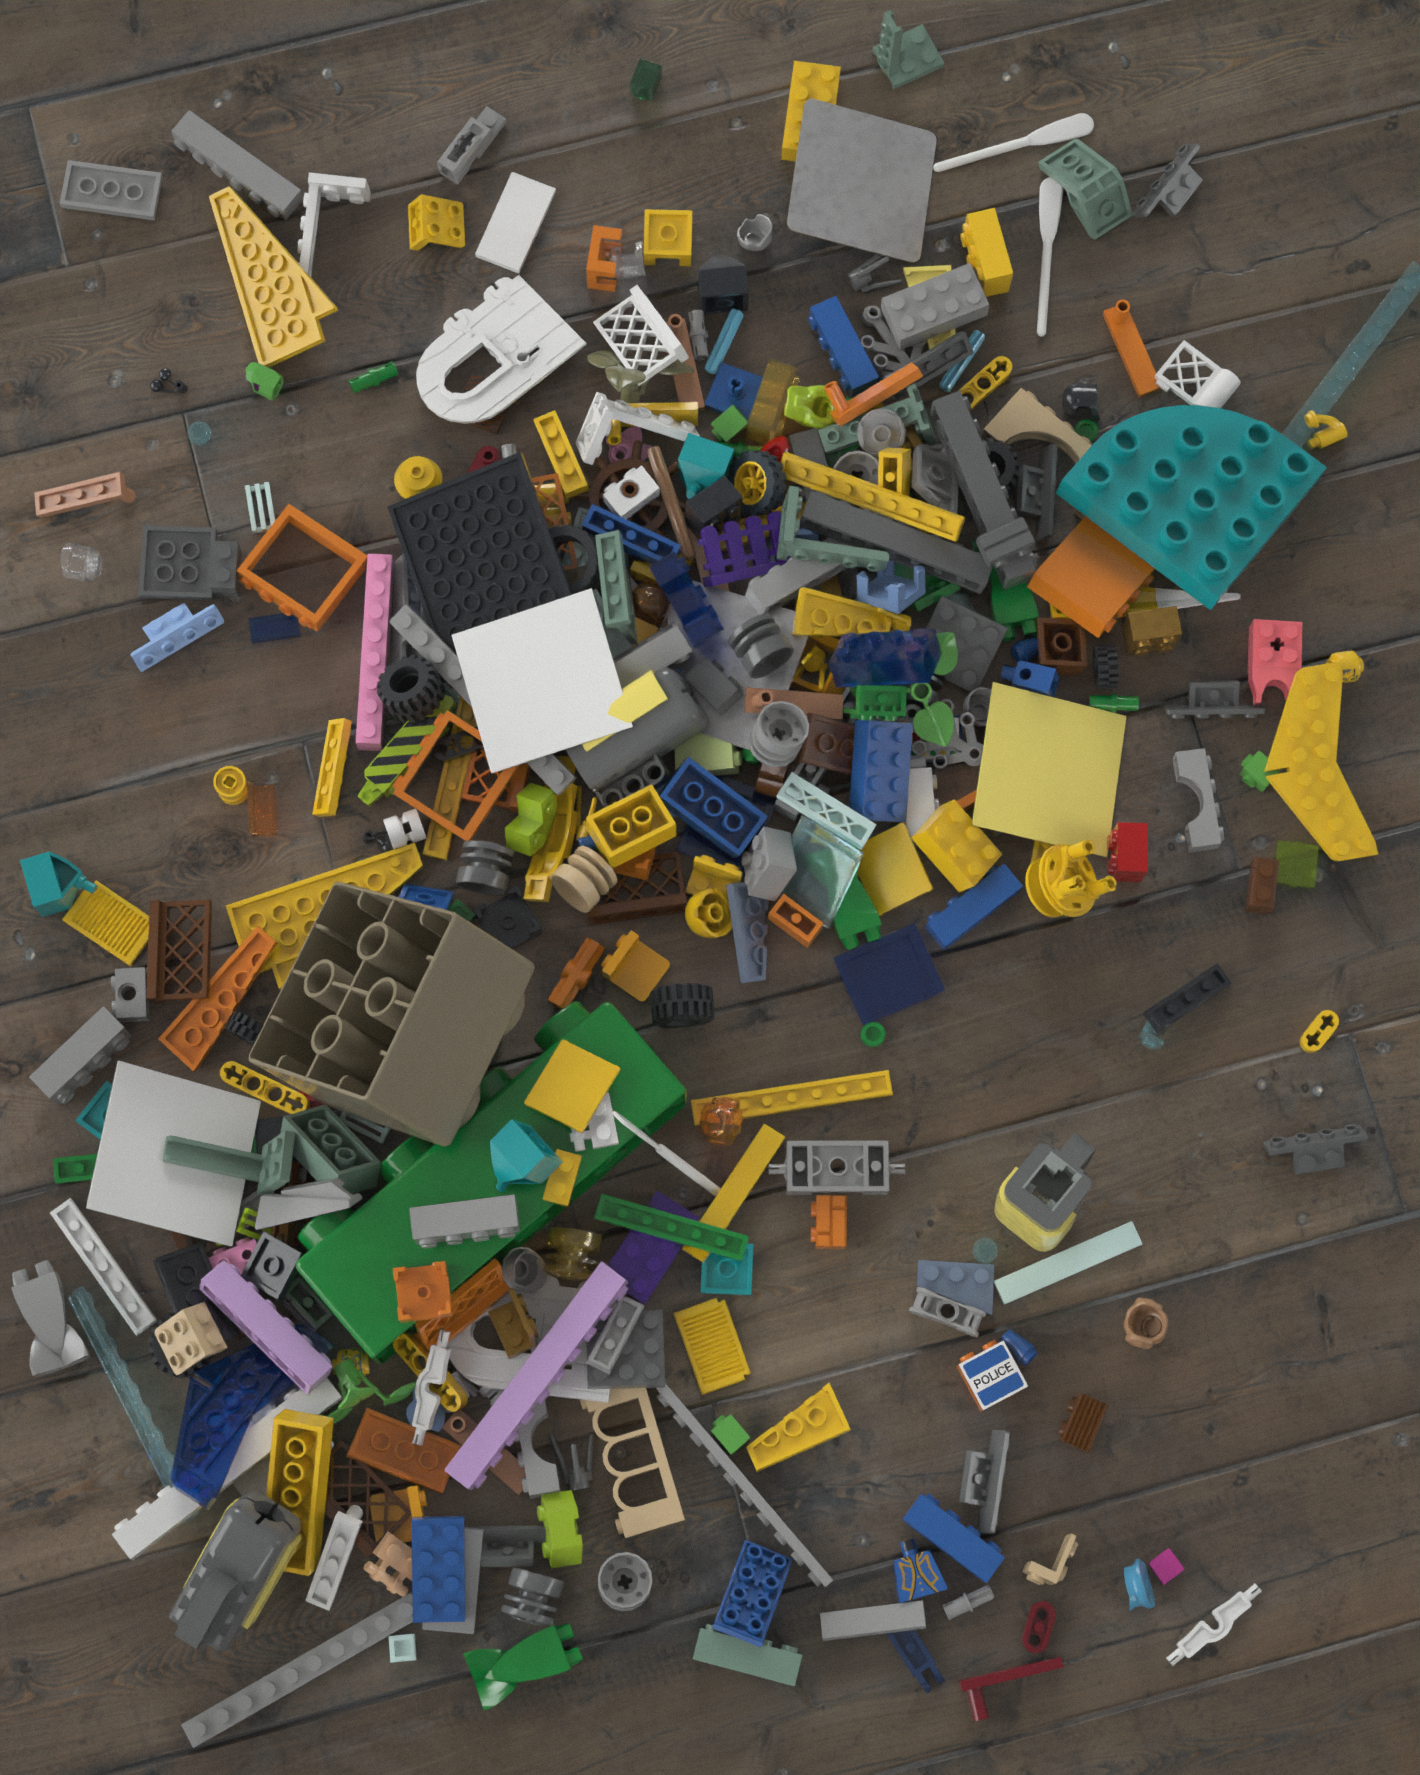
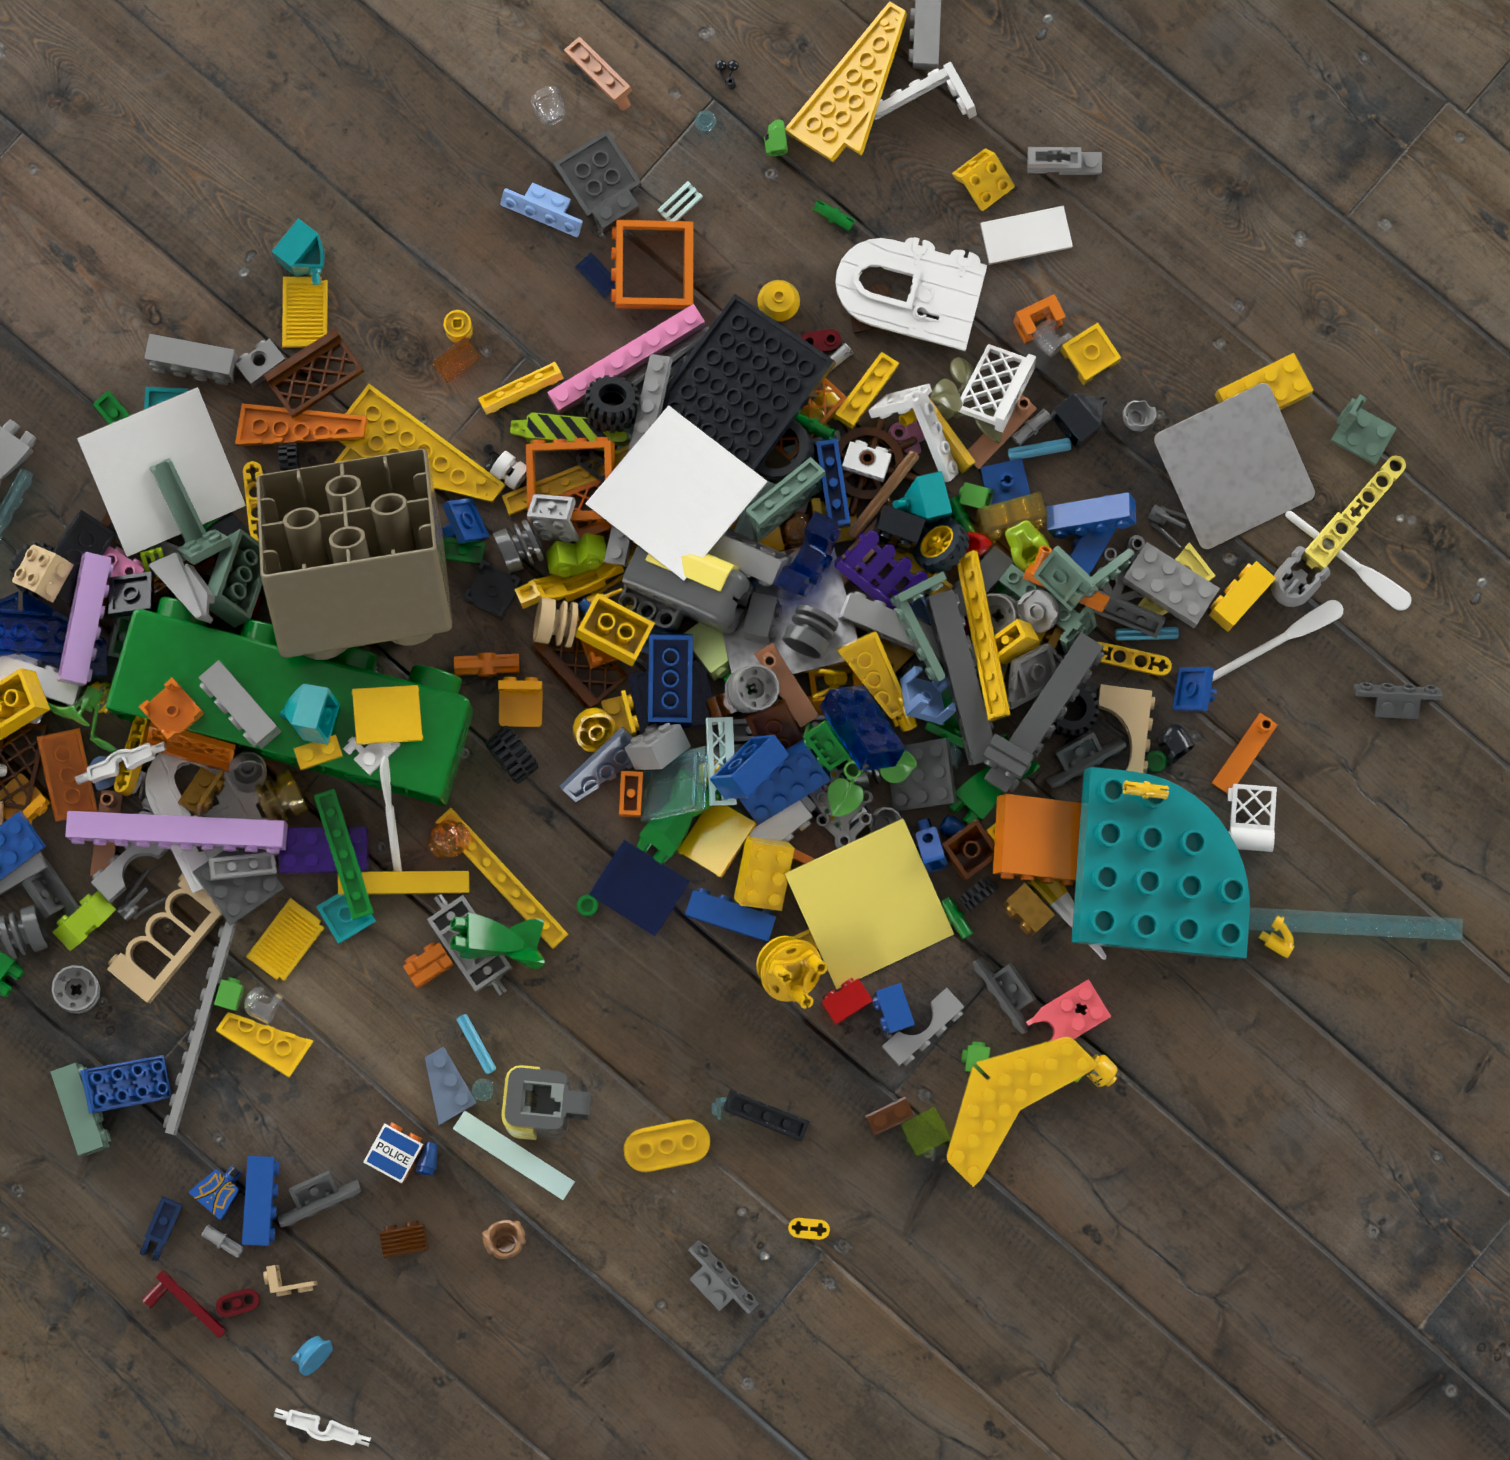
camera: 55 degrees right, 5 degrees up
(103, 1267) = (57, 479): white tile -> none
(482, 814) = (552, 516): none -> light grey bracket
(569, 517) = (813, 426): none -> green pin
(645, 80) = (1204, 254): clear green brick -> none
(762, 1410) = (263, 1010): none -> clear helmet
(823, 329) = (1091, 515): none -> brick
(847, 1142) = (487, 938): none -> green hips
(852, 785) = (749, 767): none -> blue brick
(873, 1620) = (164, 1182): light grey tile -> none
(876, 380) = (1070, 582): none -> sand green bracket
(936, 1227) = (476, 1044): none -> medium azure axle
(962, 1314) = (423, 1103): light grey piece -> none
(994, 166) = (1316, 555): none -> light yellow piece
(1044, 351) = (1194, 689): none -> blue tile
(1092, 186) = (1350, 636): sand green bracket -> none
(1118, 443) = (1145, 789): none -> yellow pin
(1153, 1112) = (666, 1145): none -> yellow tile
(1165, 813) = (893, 1009): none -> blue brick
(1166, 1566) = (341, 1366): dark pink tile -> none

